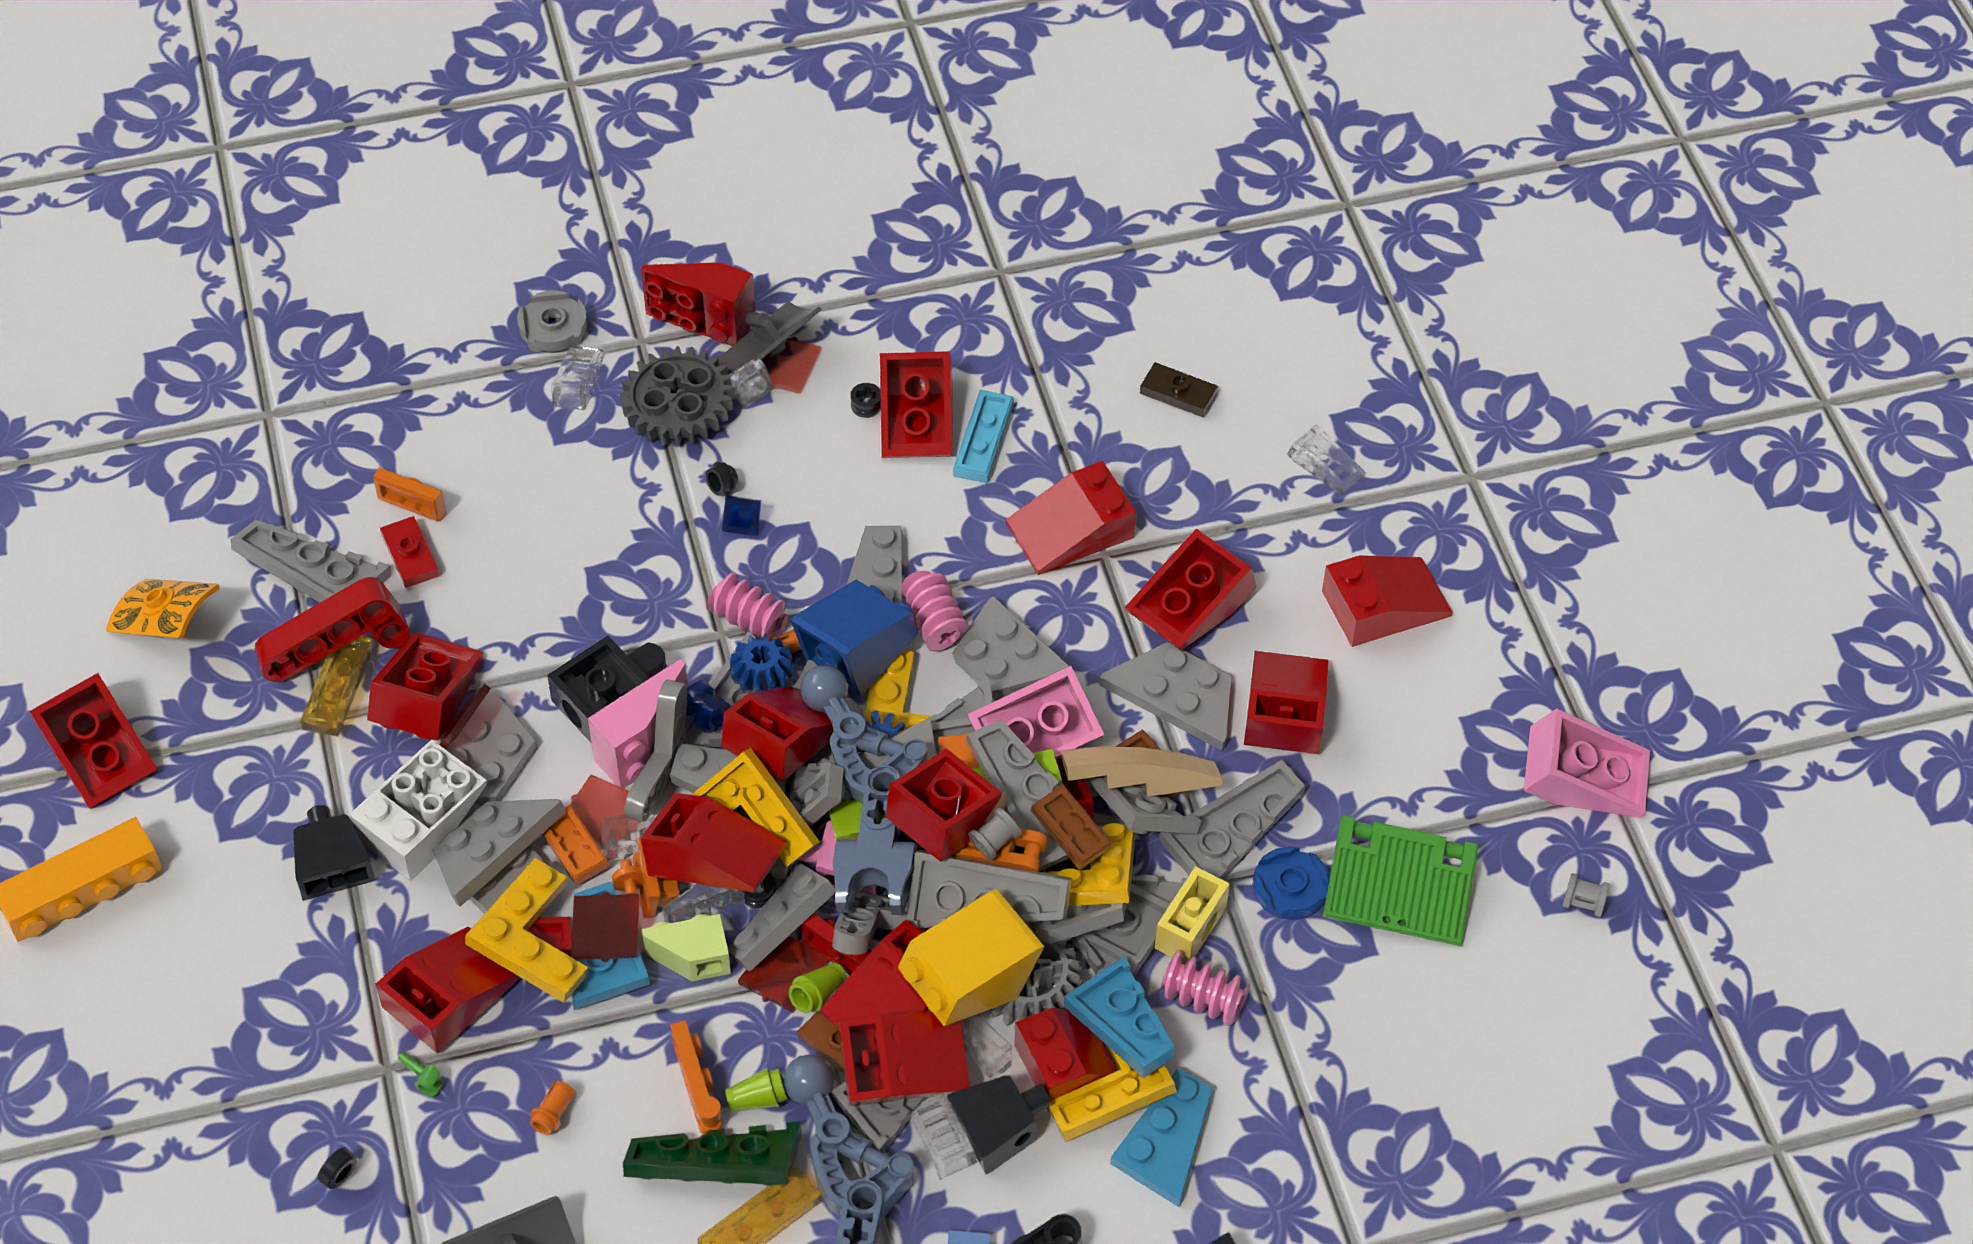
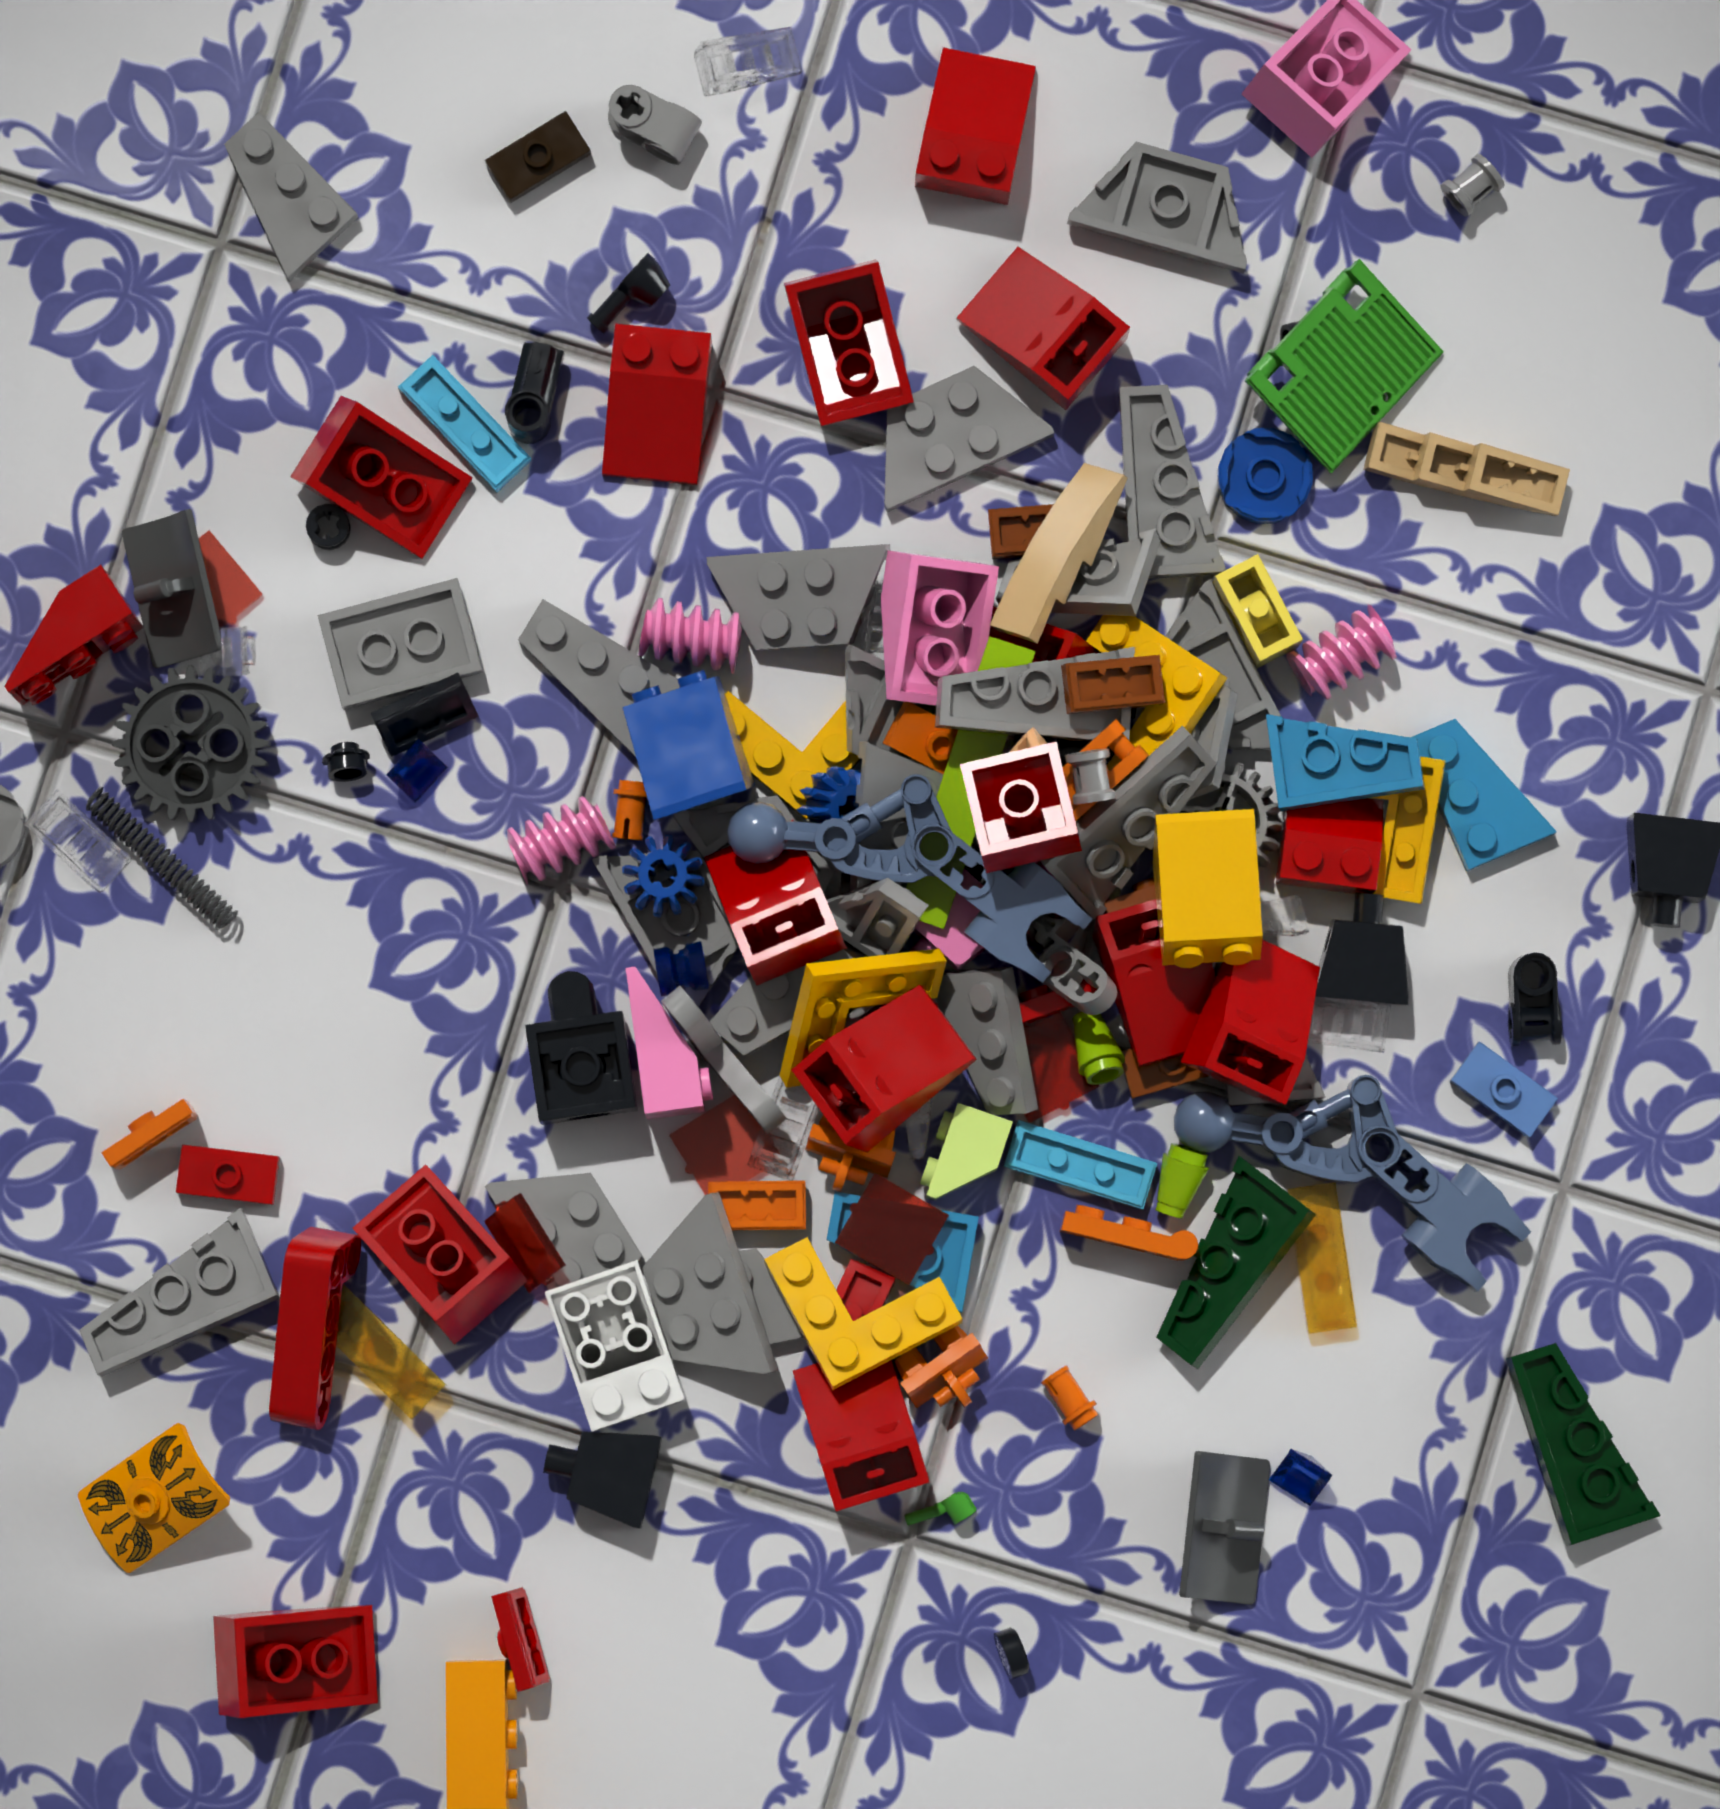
camera: 60 degrees left, 30 degrees up
(178, 860) = (519, 1639): none -> red plate
(524, 1015) = (945, 1375): none -> orange hips
(602, 416) = (156, 863): none -> dark grey piece
(728, 1027) = (1080, 1165): none -> medium azure tile
(782, 500) = (424, 714): none -> black plate
(818, 468) = (399, 643): none -> light grey plate
(1019, 455) = (535, 389): none -> black piece
(1055, 284) = (288, 195): none -> light grey wing
(1142, 472) = (642, 284): none -> black bar
(1246, 427) = (658, 126): none -> light grey piece
(1392, 1000) = (1466, 469): none -> tan slope
(1423, 727) = (1167, 205): none -> light grey wing

